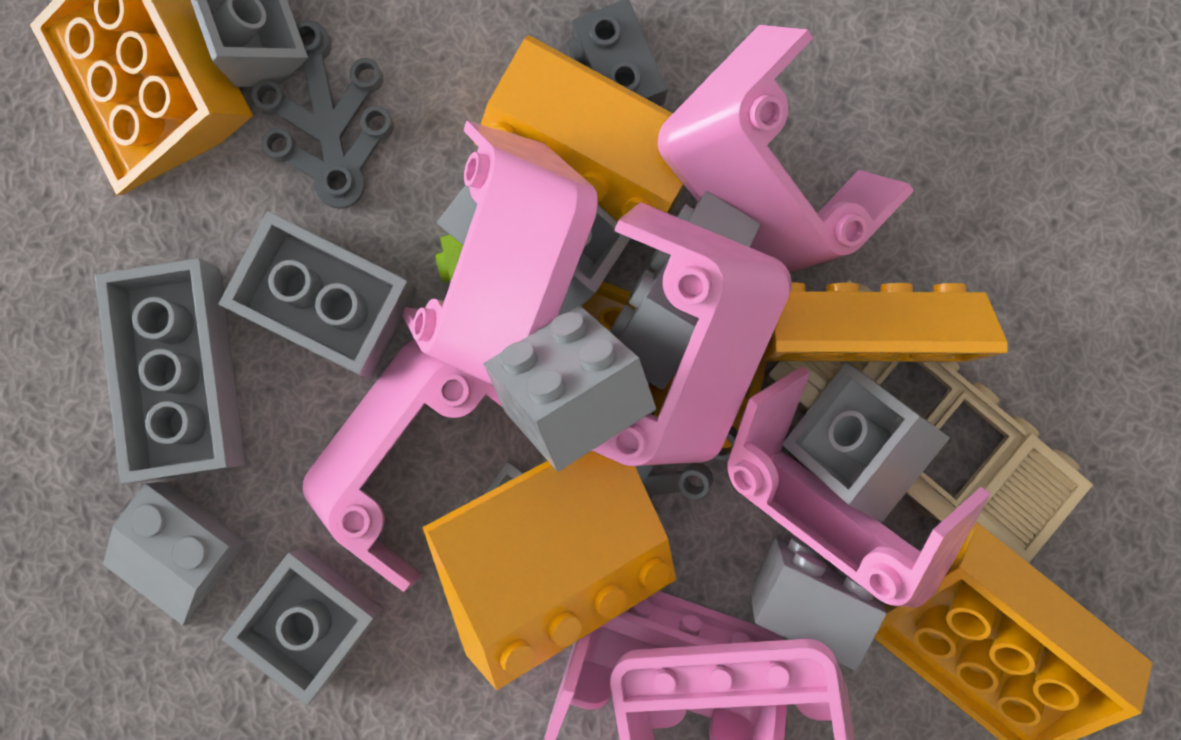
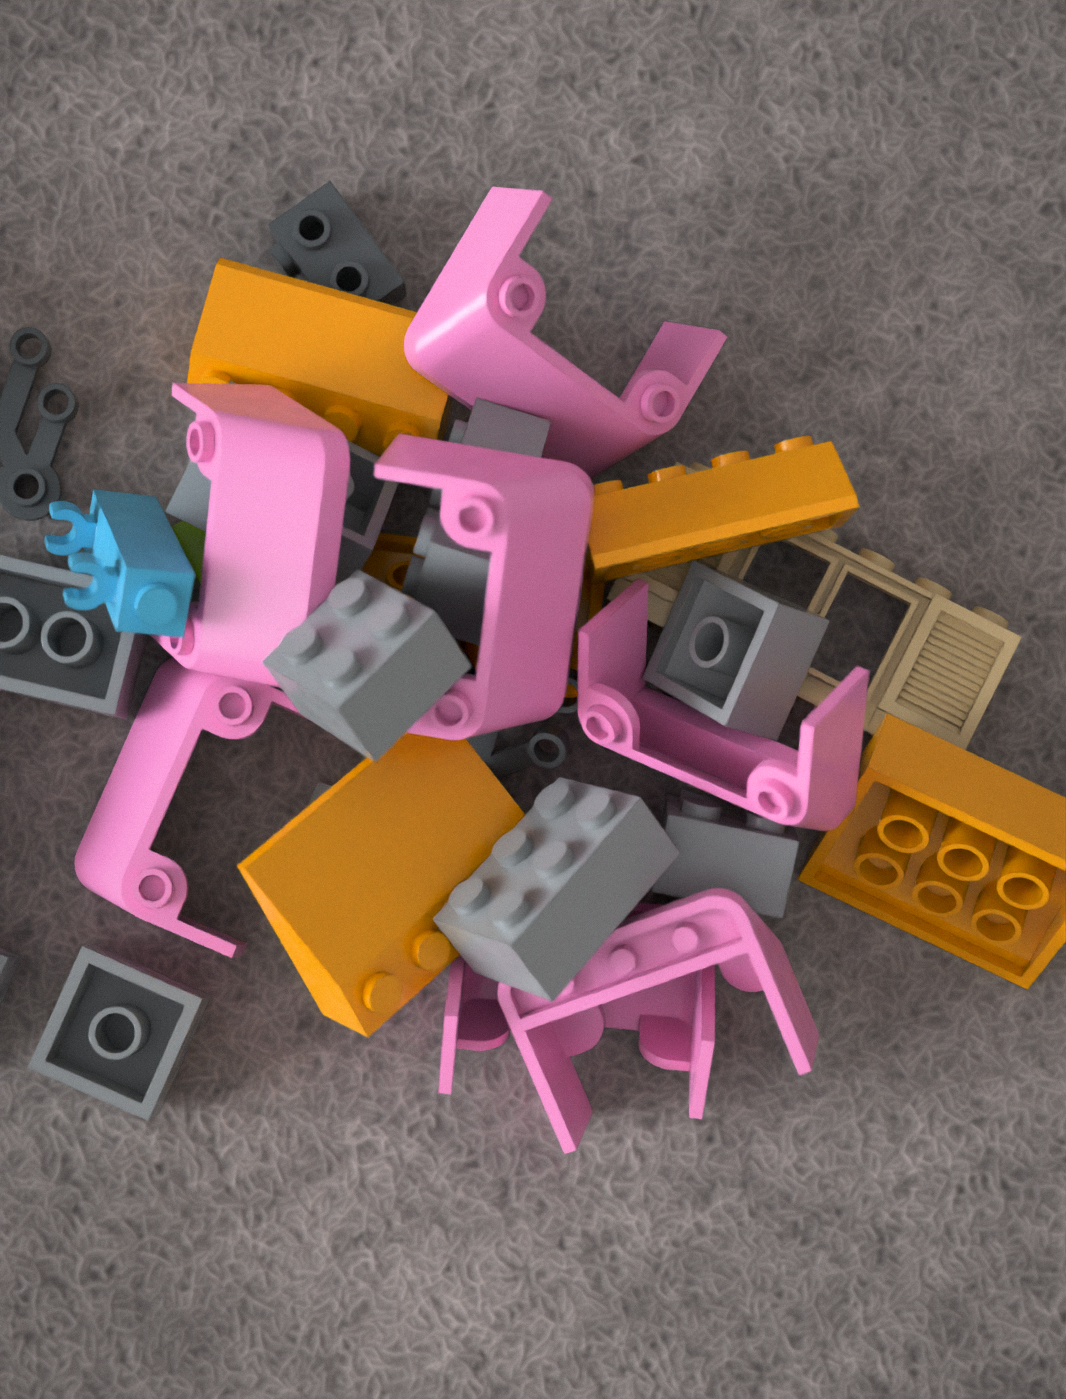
camera: 20 degrees left, 0 degrees up
(400, 262) = (132, 561): none -> medium azure brick
(681, 605) = (556, 886): none -> light grey brick

